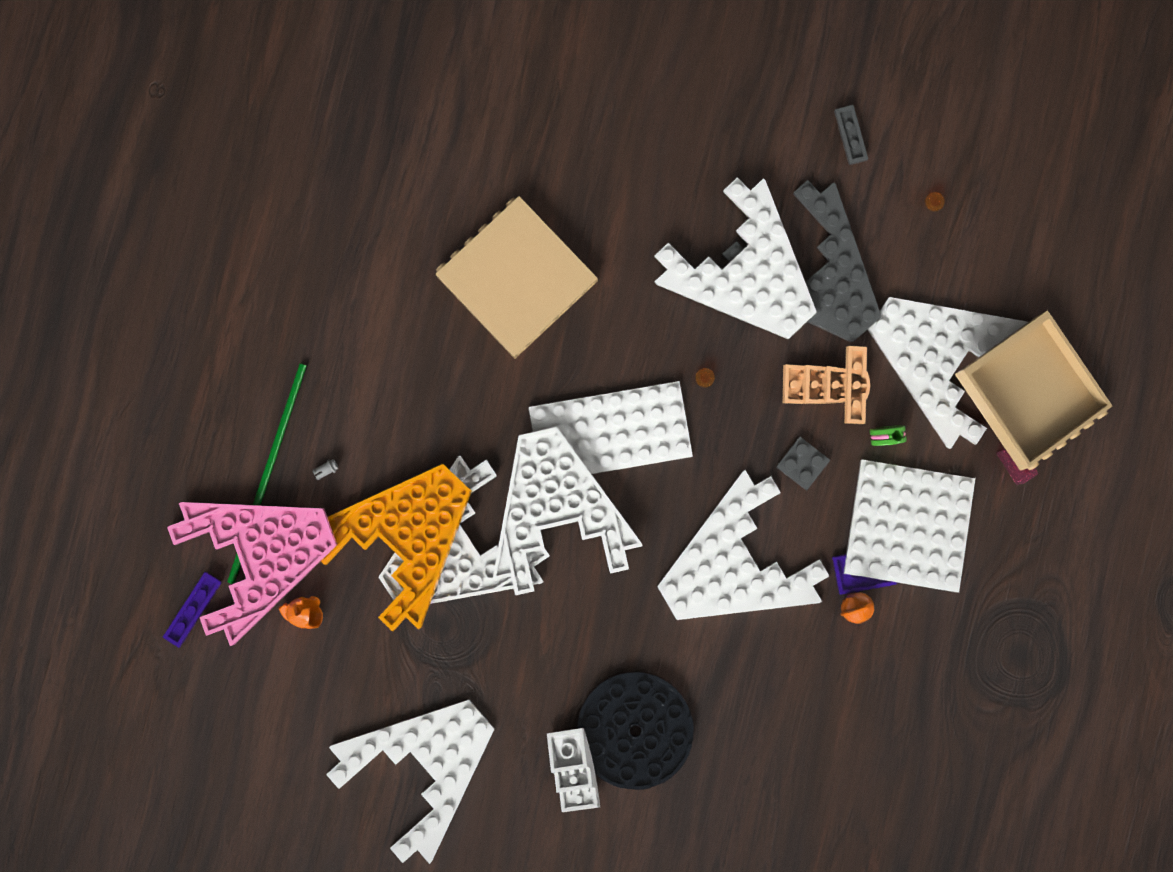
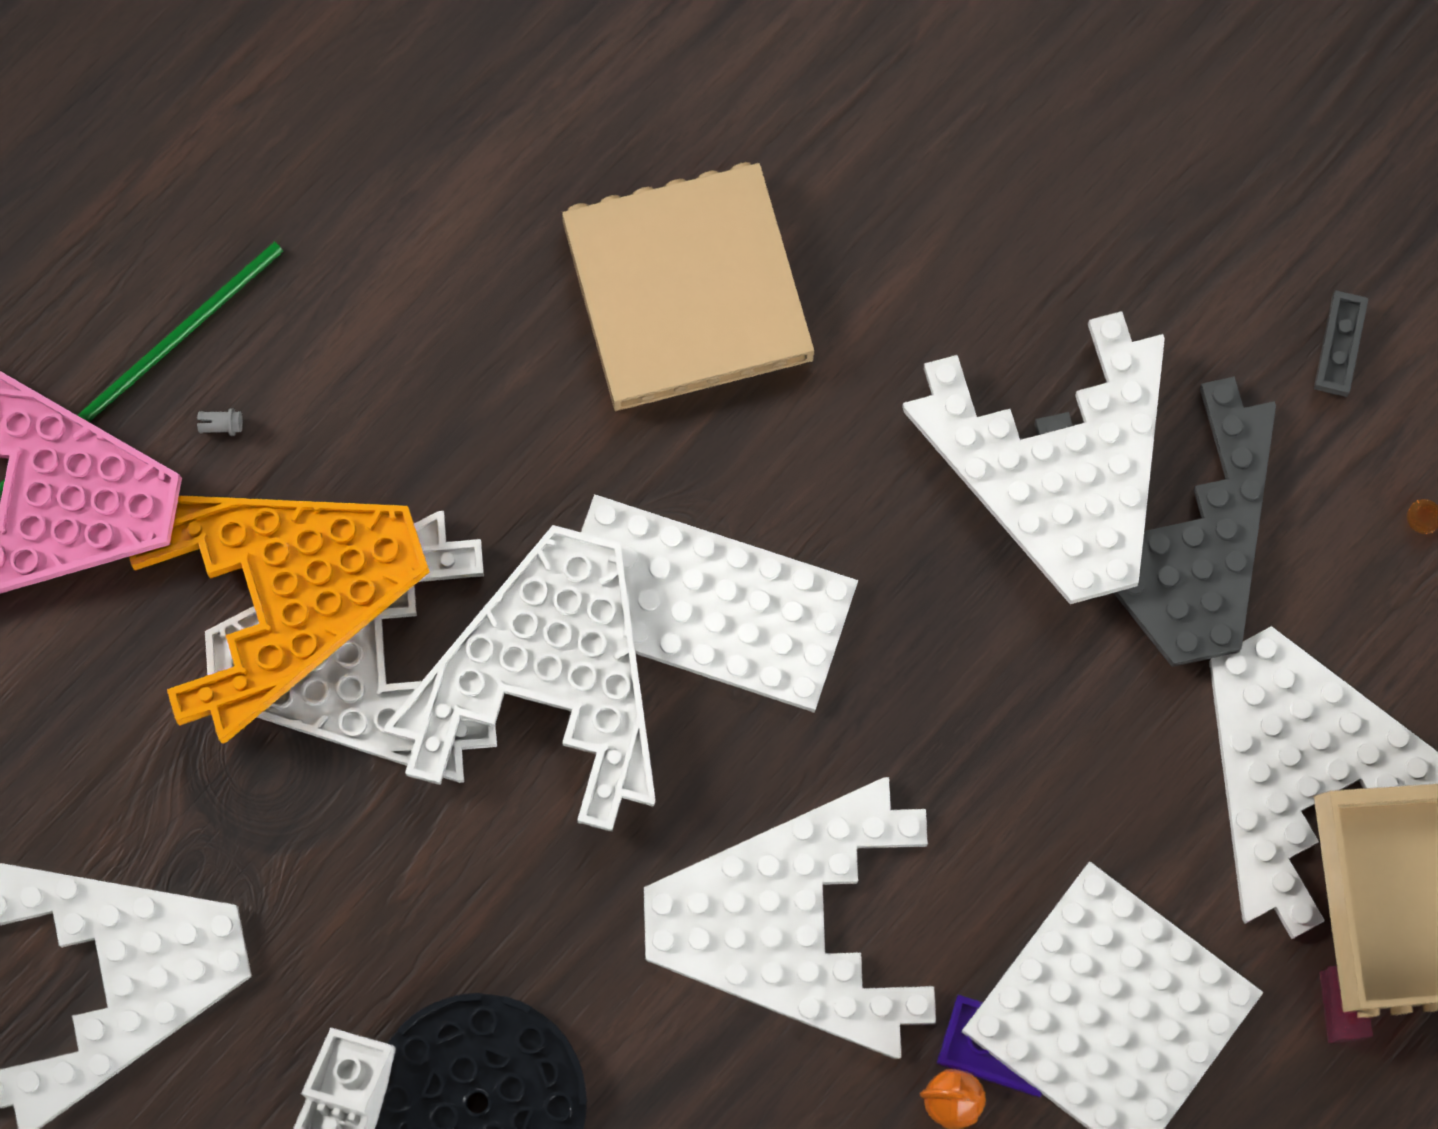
camera: 25 degrees right, 10 degrees down
(303, 612) = (55, 622): orange helmet -> none
(705, 377) = (902, 597): clear orange plate -> none
(803, 463) = (989, 817): dark grey plate -> none
(831, 384) = (1102, 714): light nougat slope -> none
(888, 435) = (1153, 842): bright green head -> none

